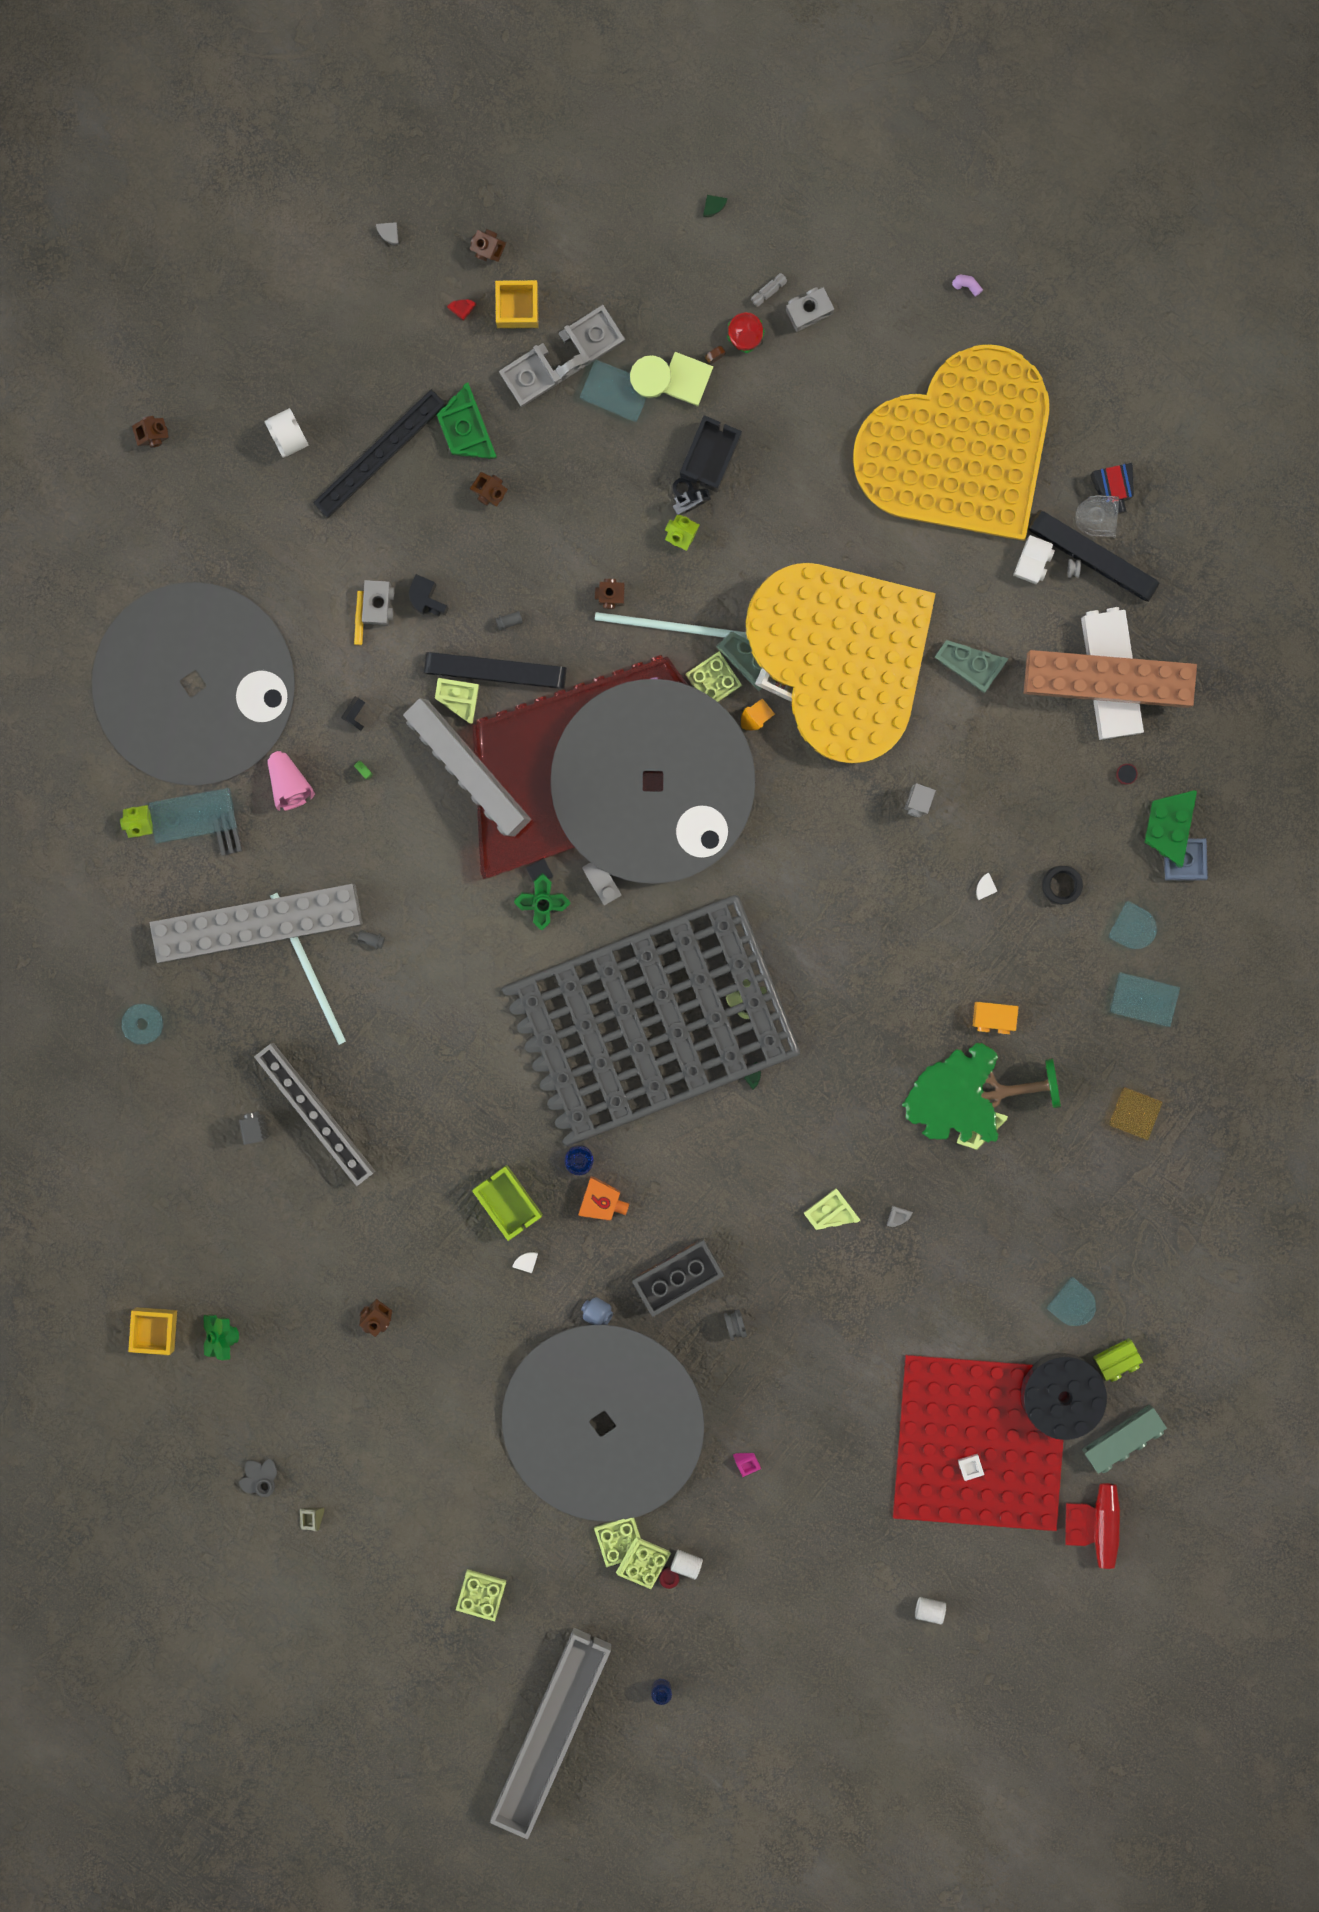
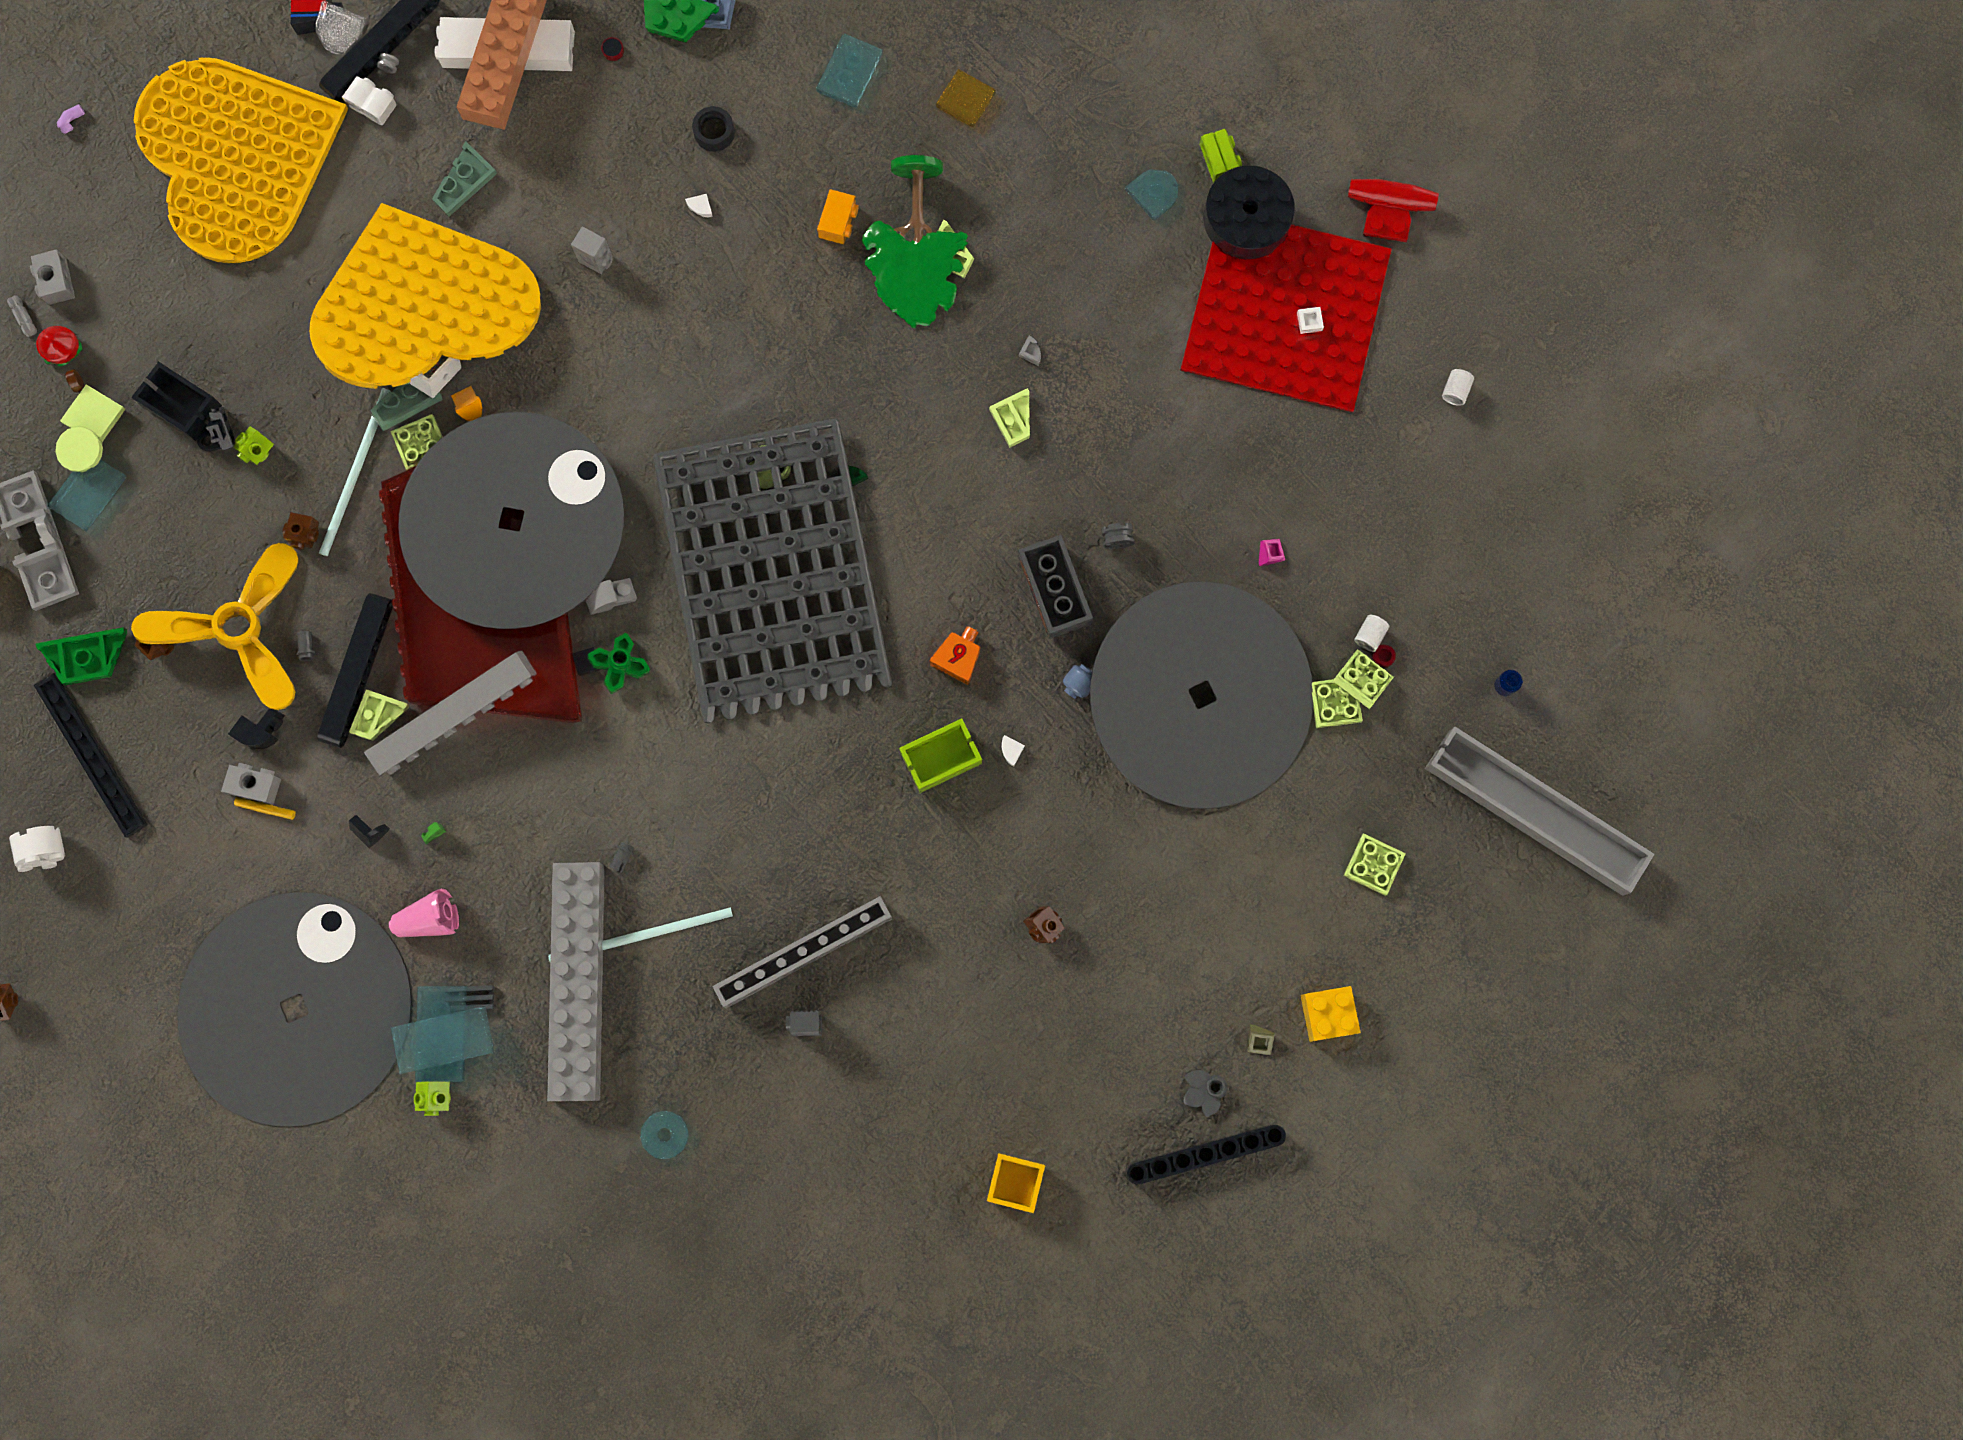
camera: 85 degrees left, 10 degrees down
(186, 820) = (442, 1040): none -> clear light blue tile
(206, 1497) = (1217, 1154): none -> black beam
(219, 1337) = (1036, 1106): green plant -> none
(342, 1576) = (1330, 1013): none -> yellow piece
(480, 589) = (261, 588): none -> yellow piece
(579, 1160) = (909, 672): clear blue wheel -> none
(1124, 1439) = (1304, 163): sand green brick -> none
(1134, 927) = (772, 68): clear light blue tile -> none

